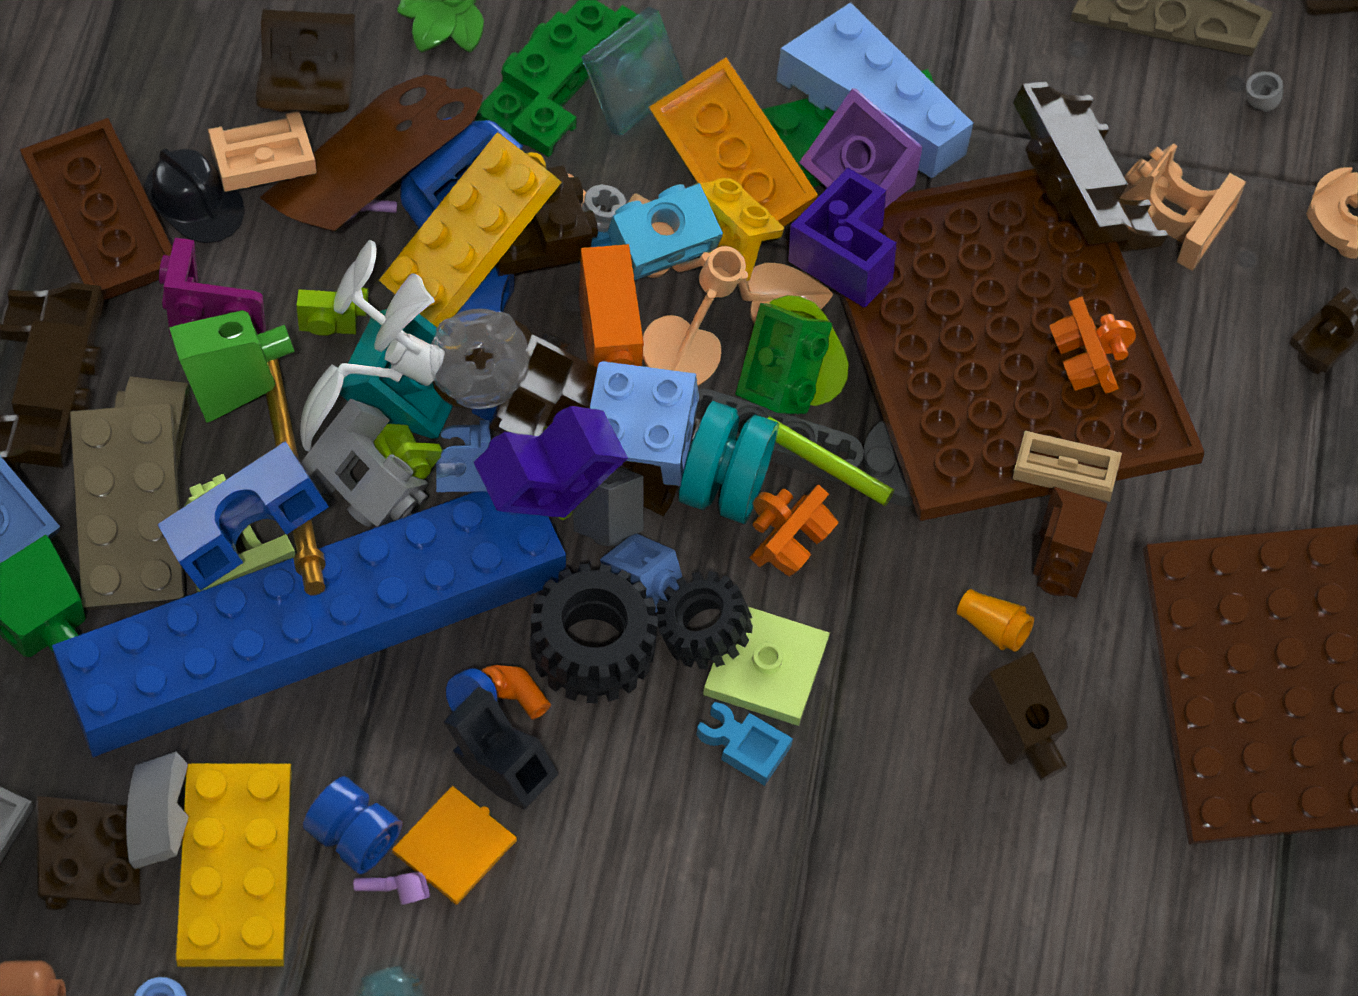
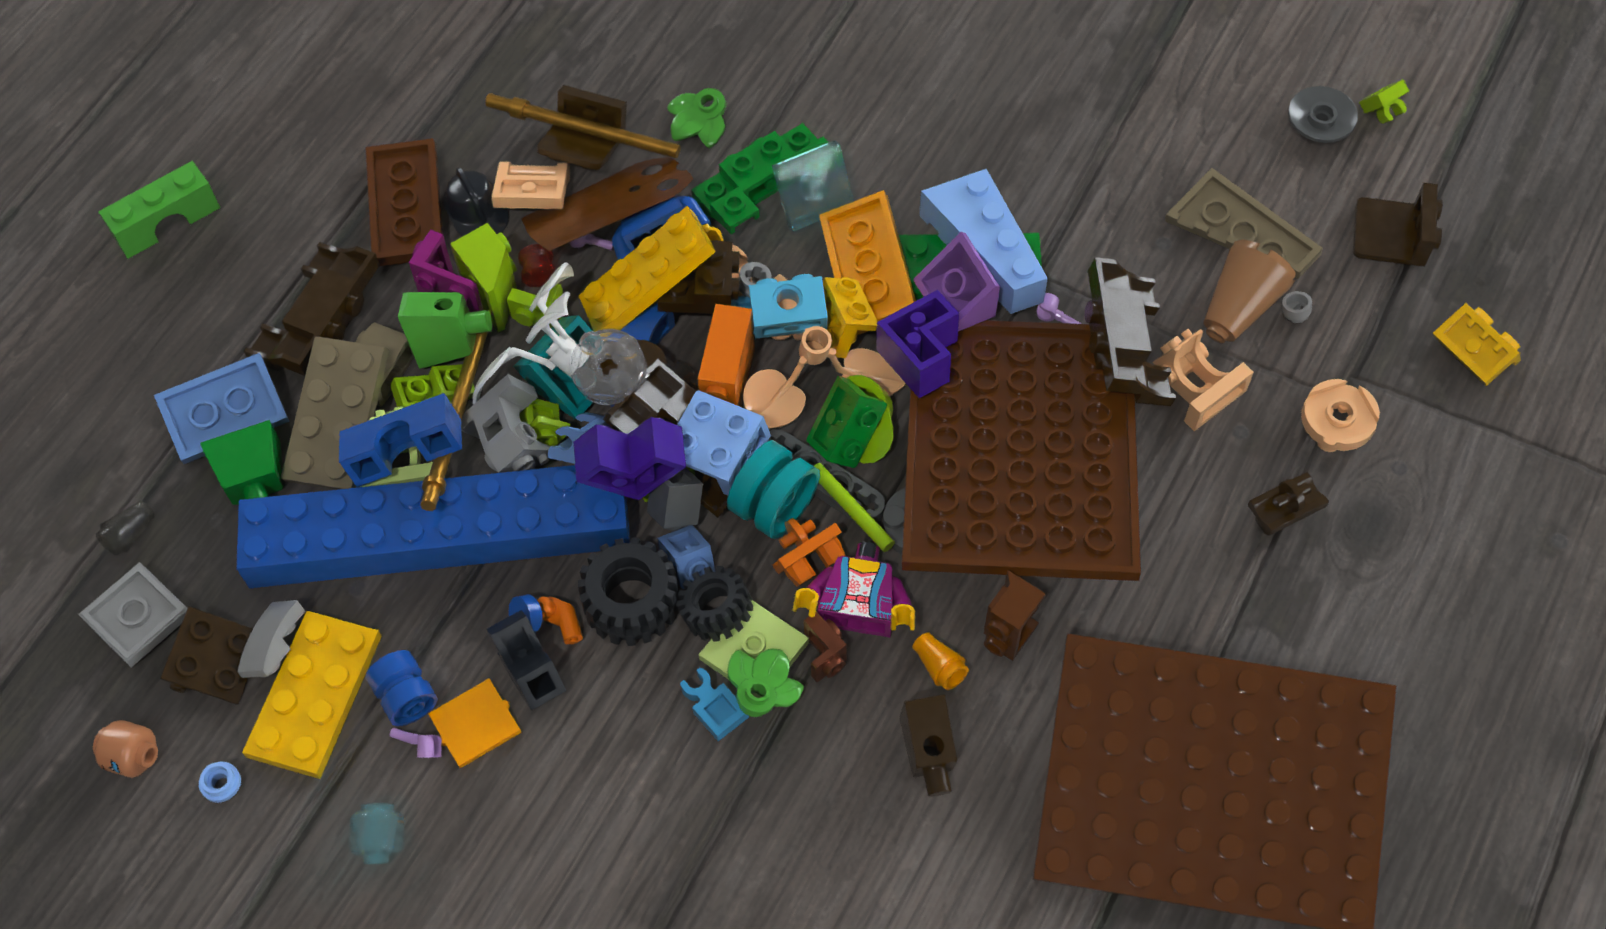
camera: 25 degrees right, 0 degrees up
(211, 53) = (522, 109): none -> pearl gold bar
(228, 450) = (419, 388): none -> lime slope
(255, 259) = (485, 261): none -> lime slope
(311, 254) = (536, 265): none -> clear red wheel
(798, 698) = (763, 676): none -> bright green plate
(856, 632) = (827, 640): none -> copper bracket
(876, 566) = (859, 595): none -> torso
(973, 164) = (1049, 310): none -> lavender hand
(1065, 471) = (1023, 561): tan tile -> none
(1080, 330) = (1082, 466): orange hips -> none
(1202, 83) = (1246, 290): none -> medium nougat cone

